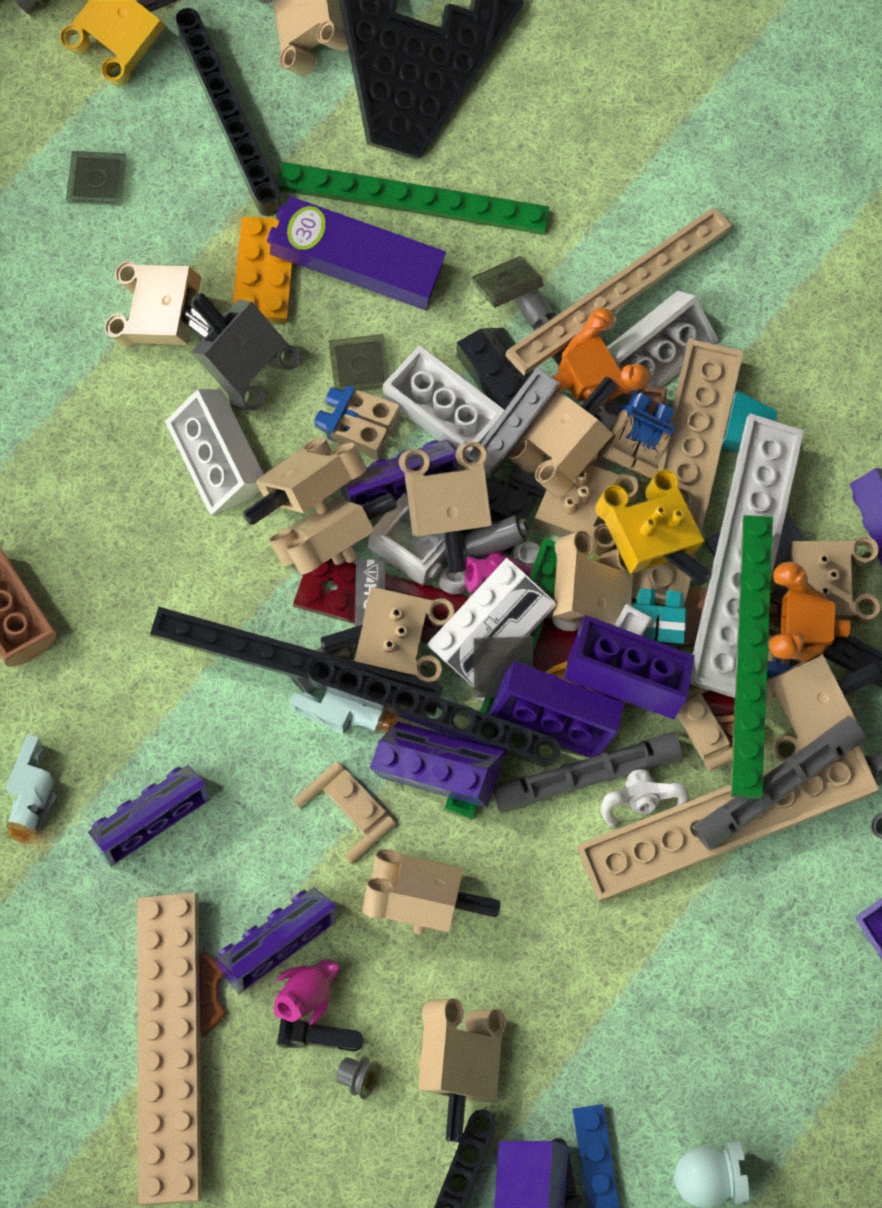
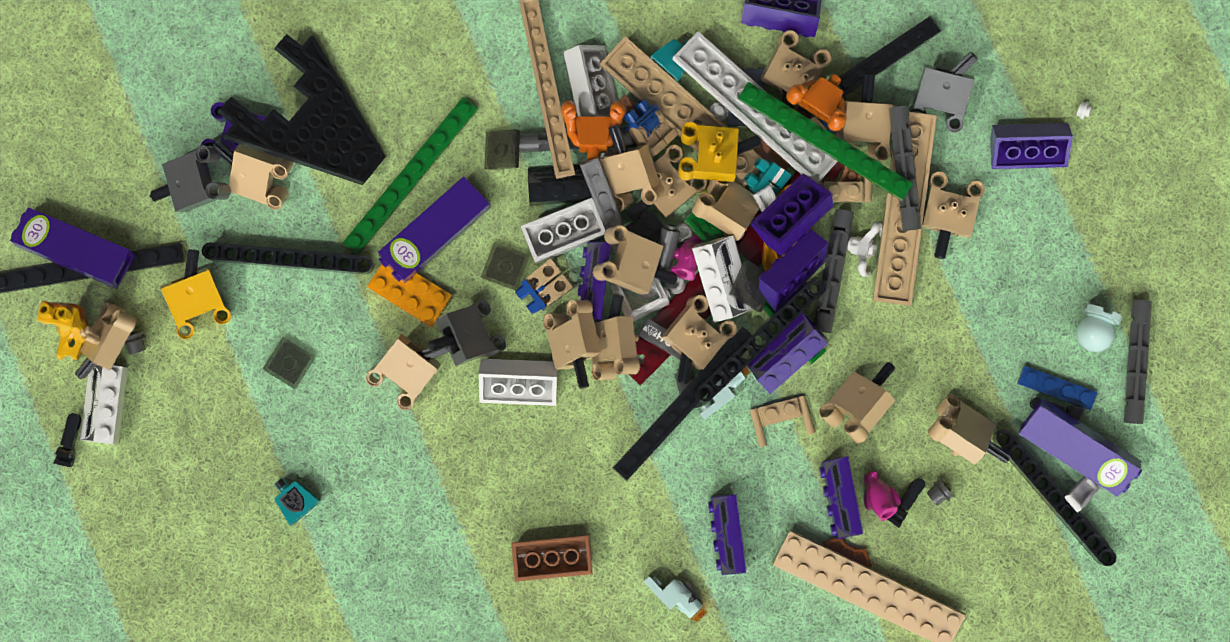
camera: 65 degrees left, 15 degrees up
(714, 518) = (719, 111): none -> white plate
(759, 886) = (950, 212): none -> tan piece

